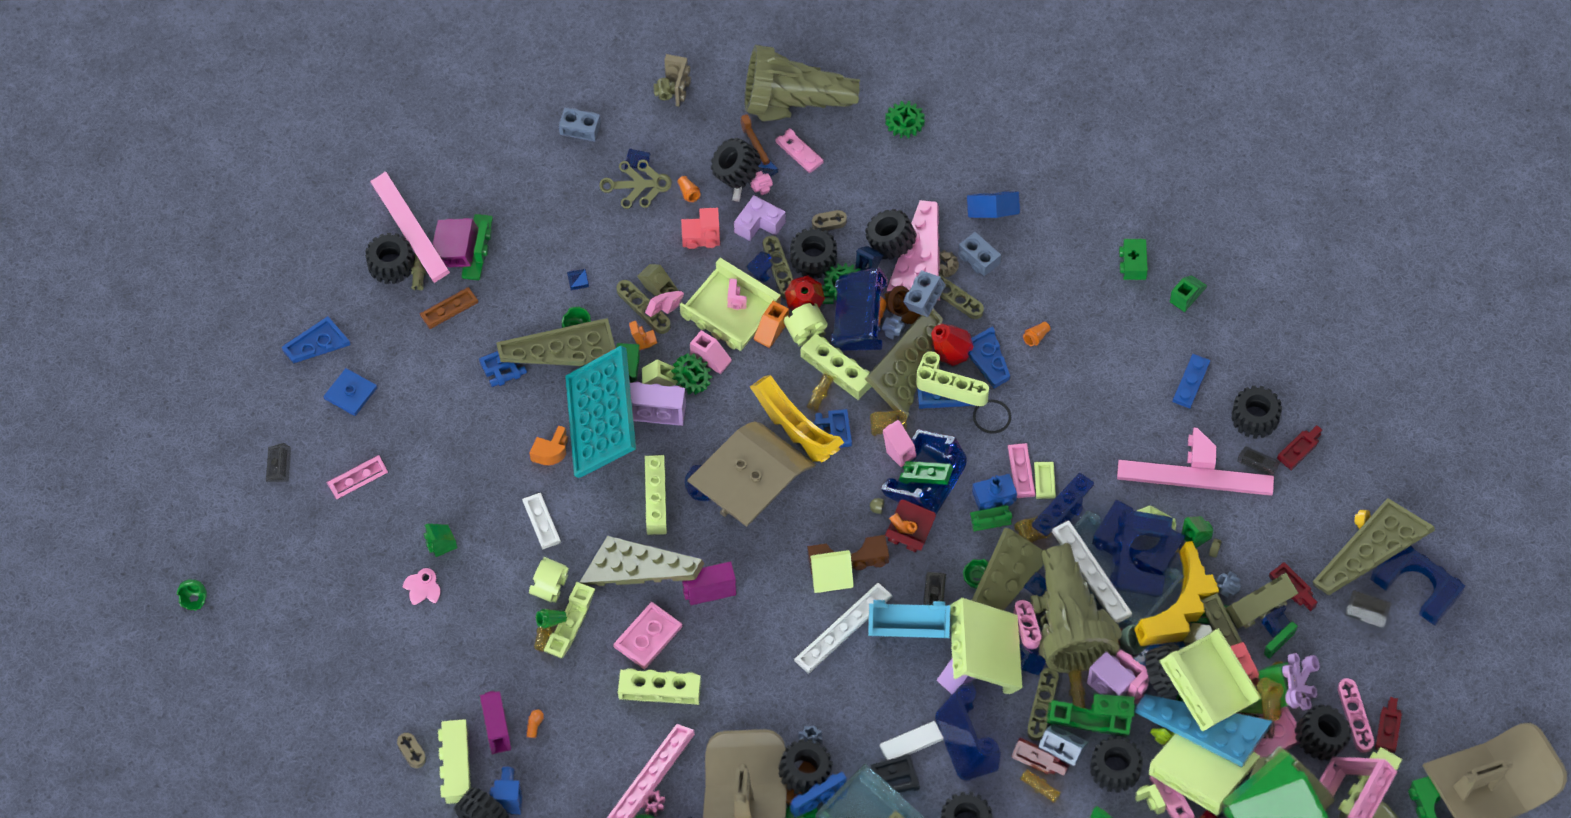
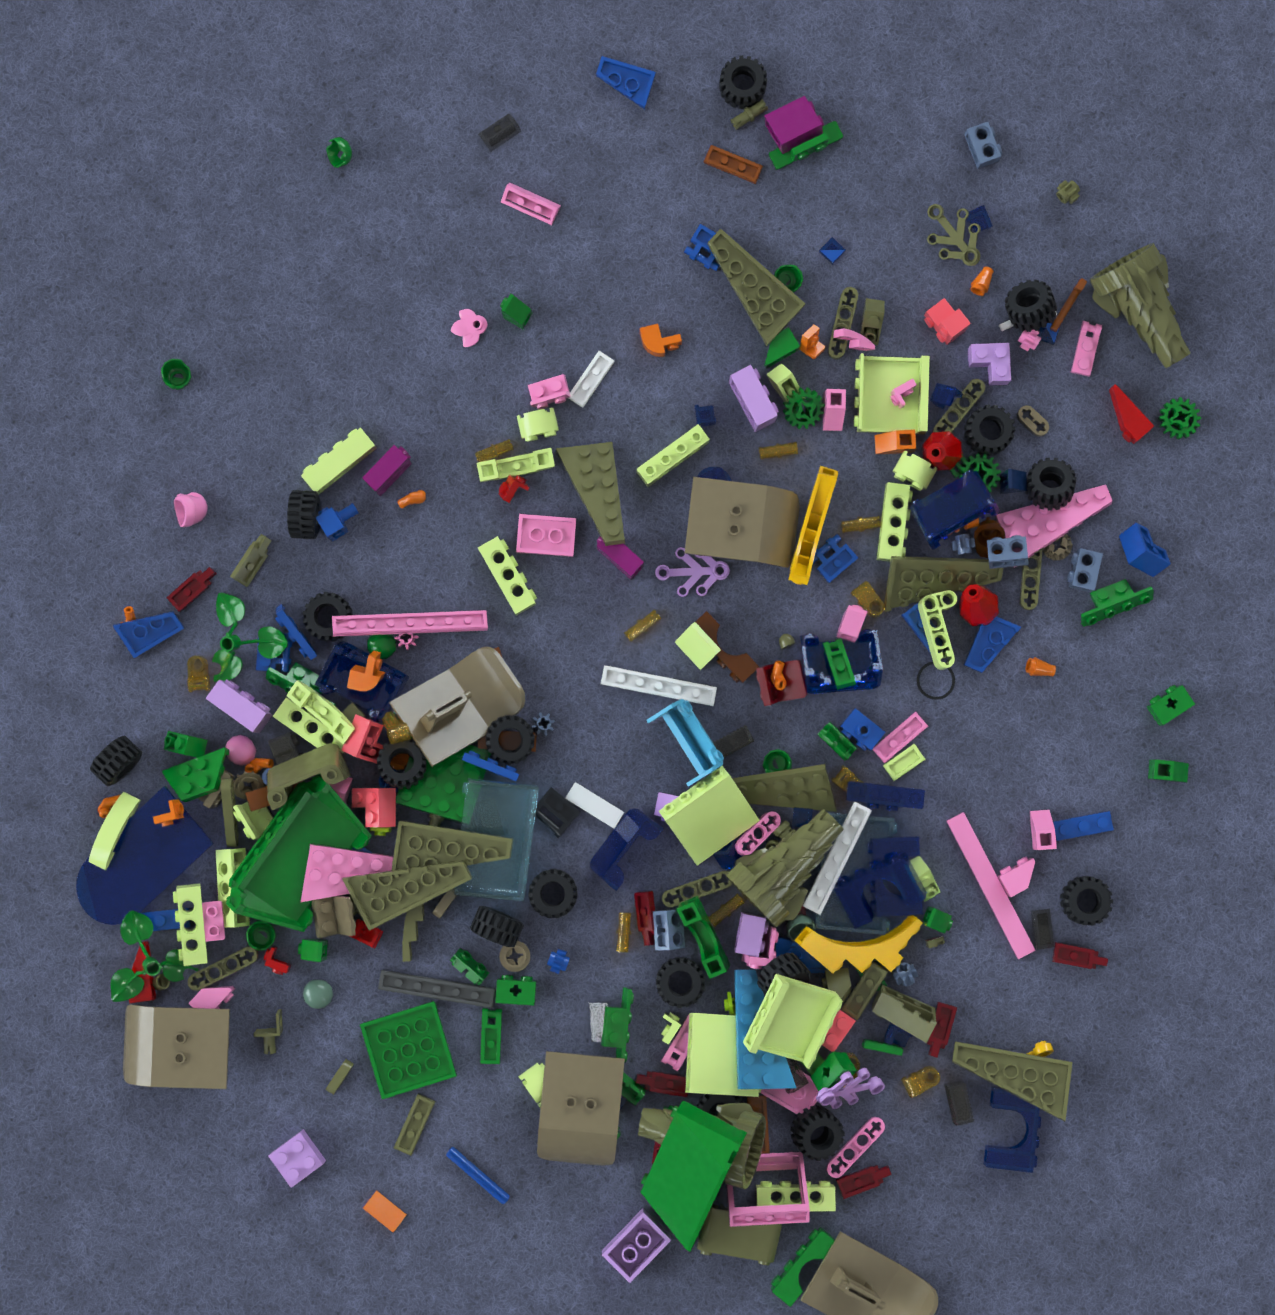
camera: 55 degrees right, 25 degrees up
(350, 392) = (601, 141): blue plate -> none
(410, 227) = (782, 77): bright pink tile -> none
(415, 747) = (323, 417): dark tan beam -> none
(527, 557) = (549, 391): none -> bright pink bracket
(548, 618) = (504, 449): green cone -> none
(585, 635) = (510, 486): none -> red bracket
(600, 412) = (712, 360): teal plate -> none
(640, 452) = (704, 415): none -> clear blue panel
(678, 71) = (1091, 192): dark tan bracket -> none
(712, 415) = (778, 450): none -> clear yellow pin
(765, 539) = (695, 572): none -> lavender plant
(782, 608) = (642, 625): none -> clear yellow pin
(878, 152) = (1130, 418): none -> red slope
(1019, 249) = (1114, 600): none -> green bracket
(1113, 705) = (723, 952): green hinge -> none
(1175, 409) = (1042, 830): none -> bright pink slope
(1271, 694) = (814, 1076): clear yellow piece -> none
(1330, 629) = (919, 1081): none -> clear yellow piece

